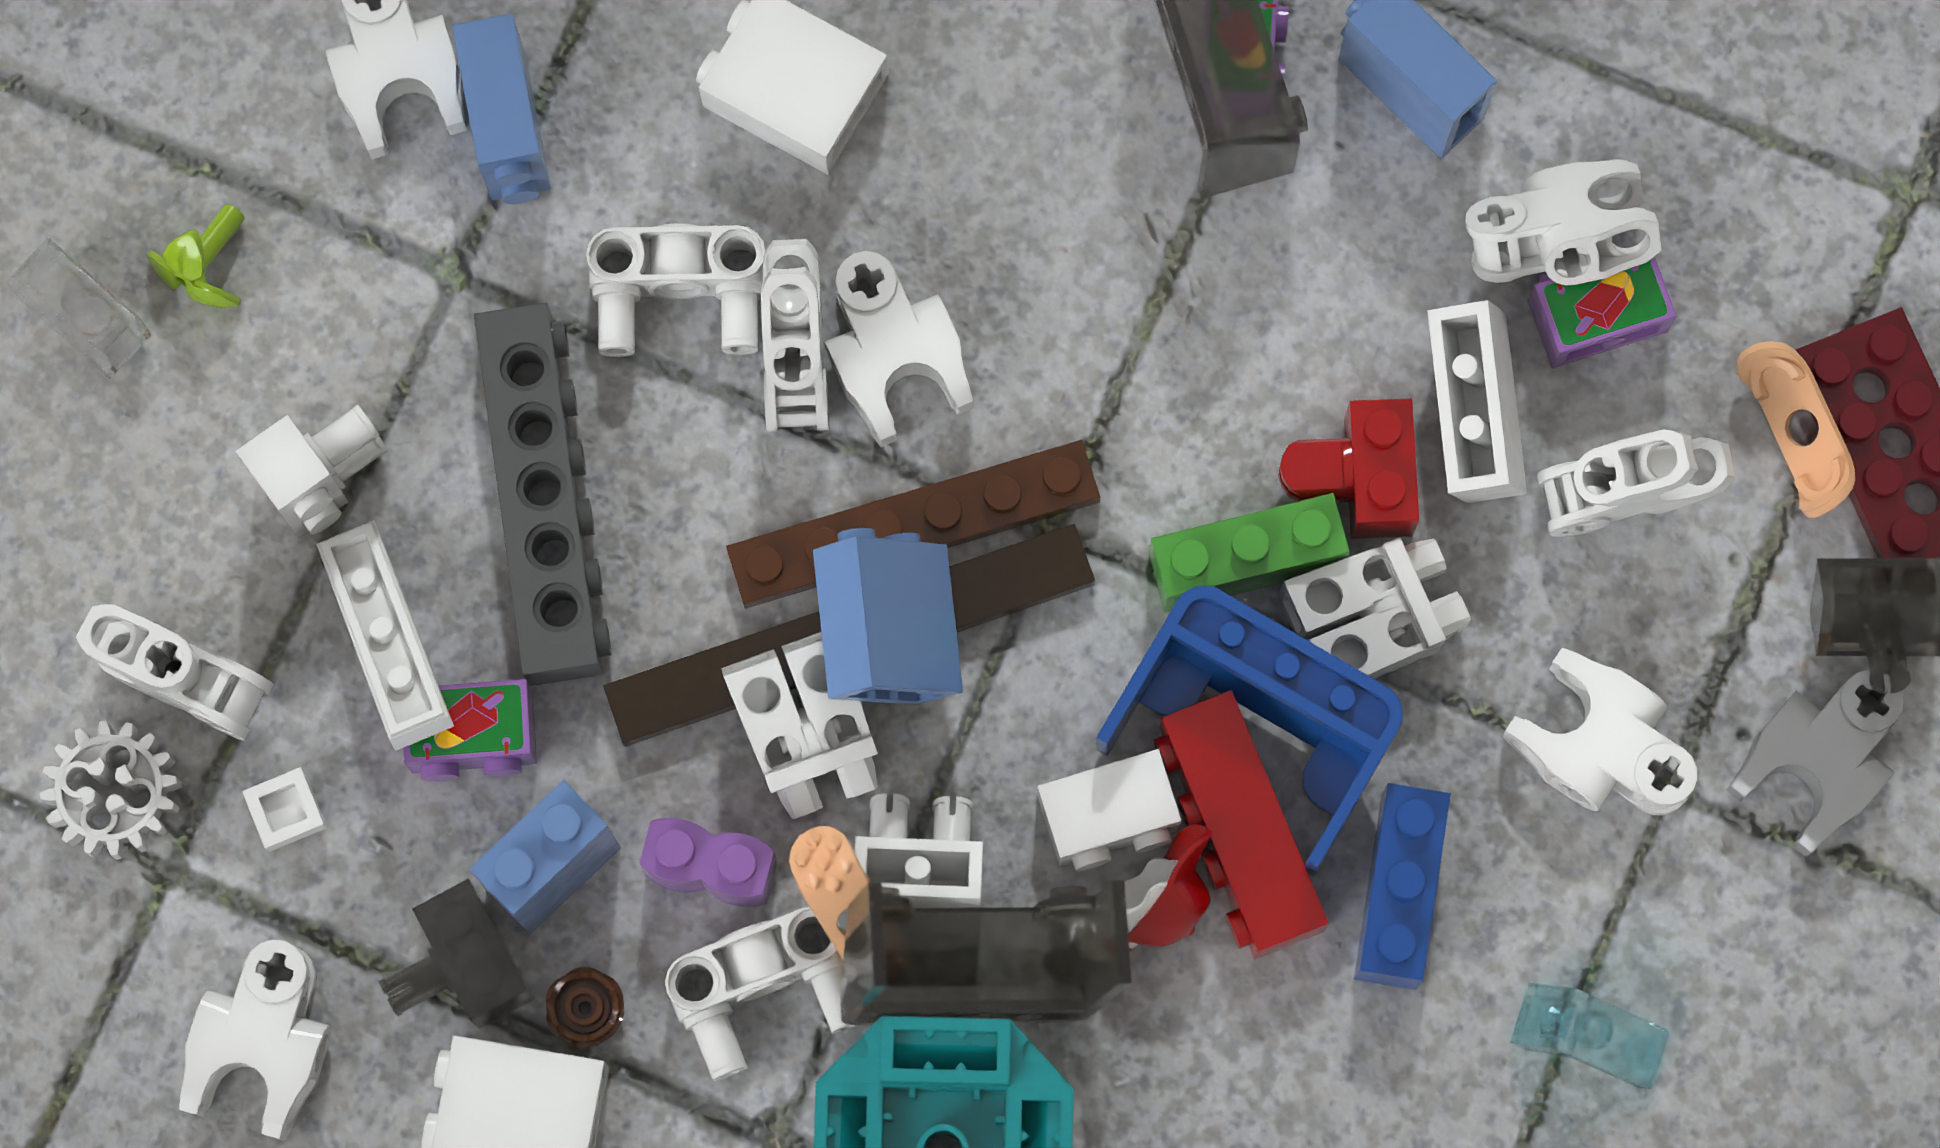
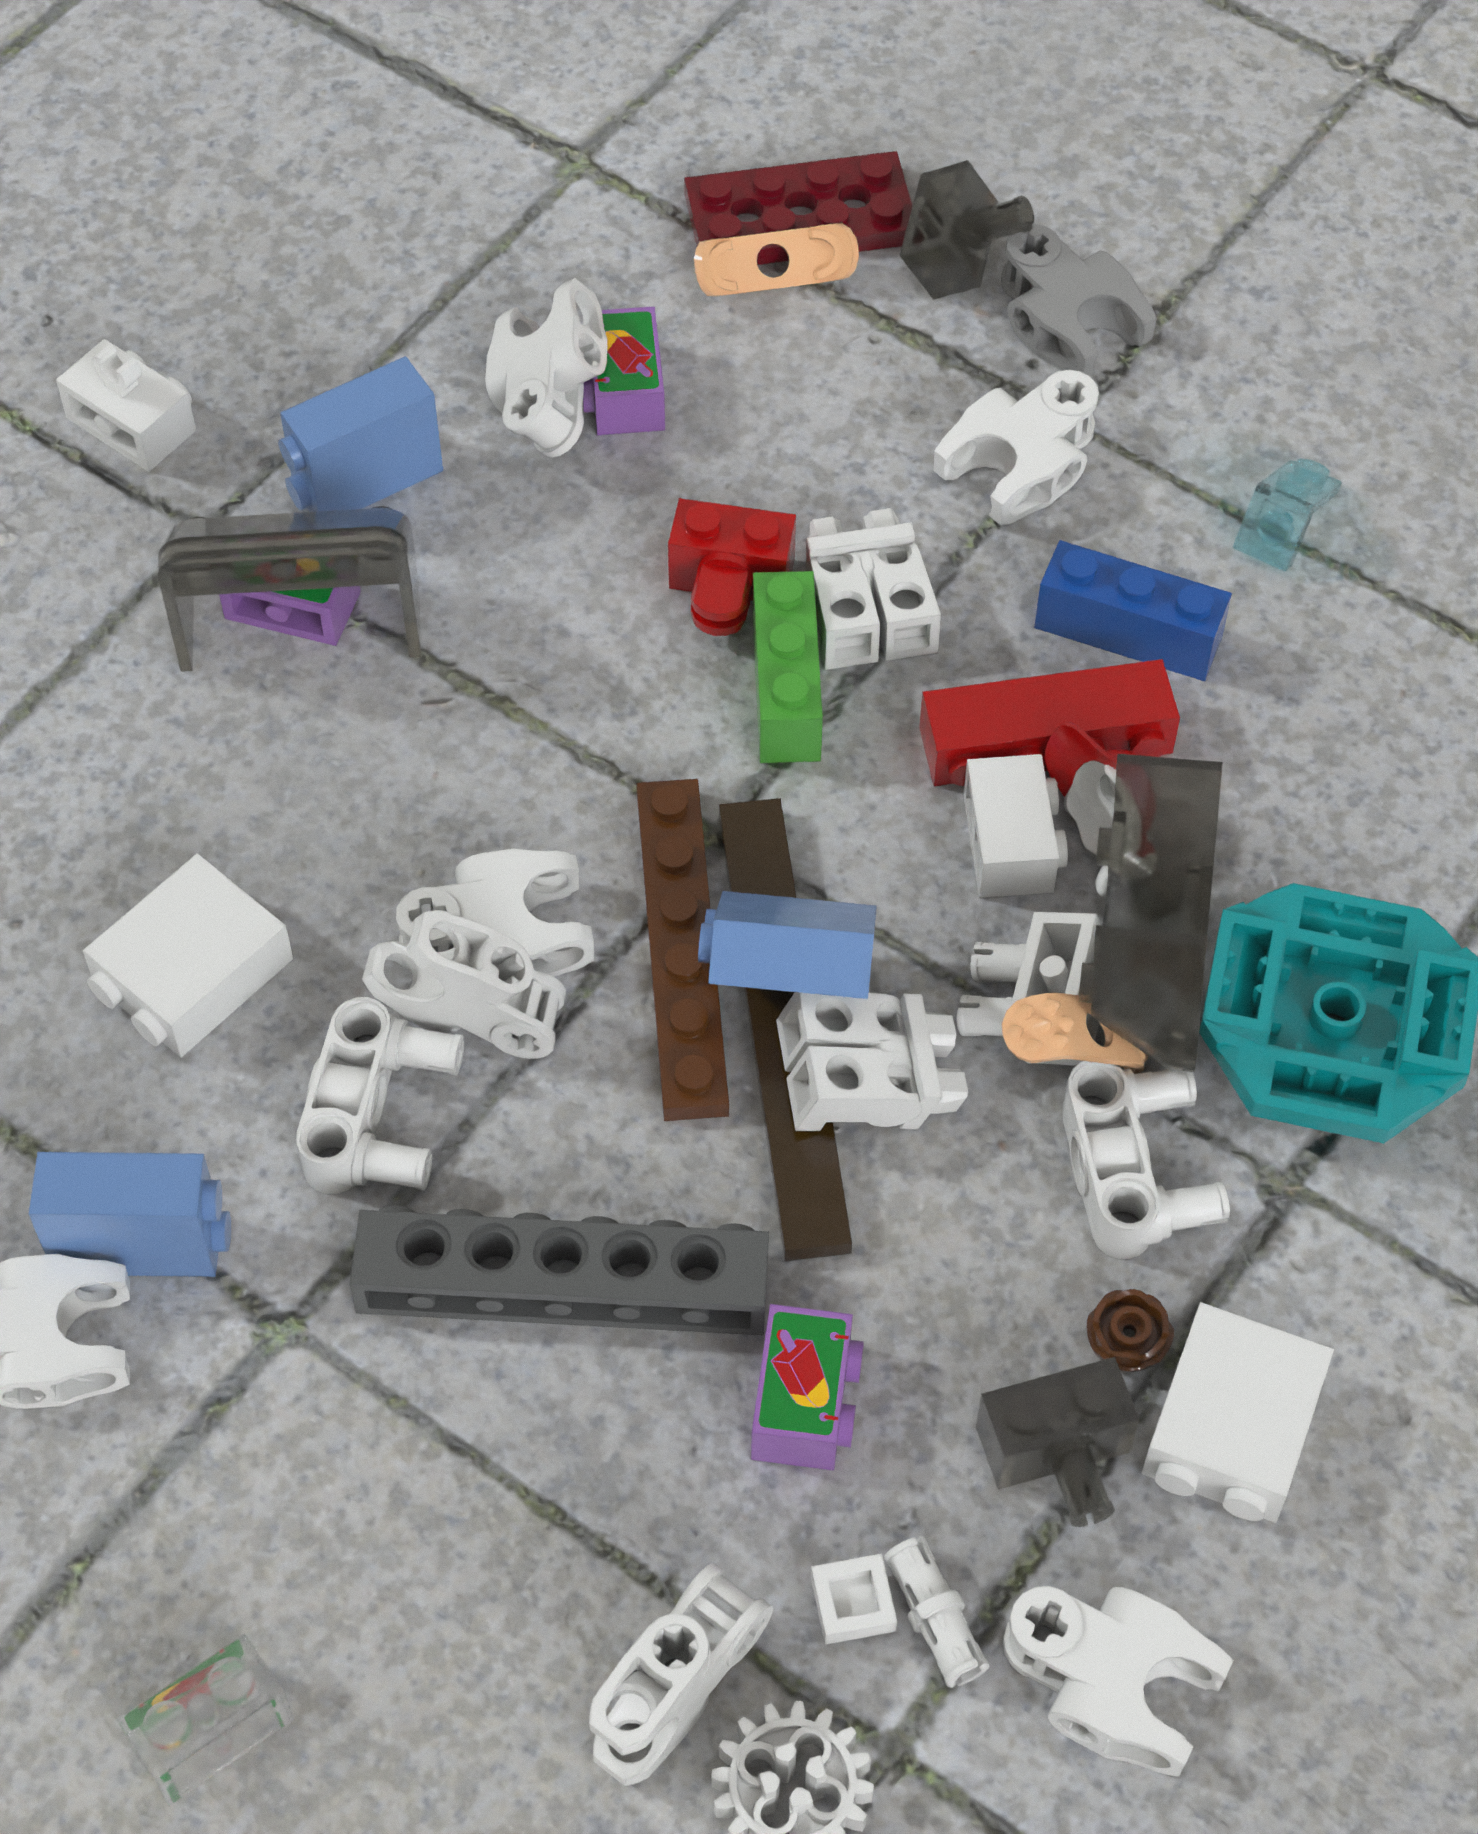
camera: 80 degrees left, 20 degrees down
(190, 256) = (194, 1579): lime plant -> none
(289, 882) = (936, 1611): none -> white pin
(308, 472) = (479, 1485): white brick -> none
(384, 635) = (685, 1442): white tile -> none
(546, 857) = (973, 1307): medium blue brick -> none
(692, 860) = (999, 1178): medium lavender brick -> none
(1277, 676) = (960, 613): blue windscreen -> none
(1477, 402) = (689, 462): white brick -> none
(1631, 480) = (797, 395): white piece -> none

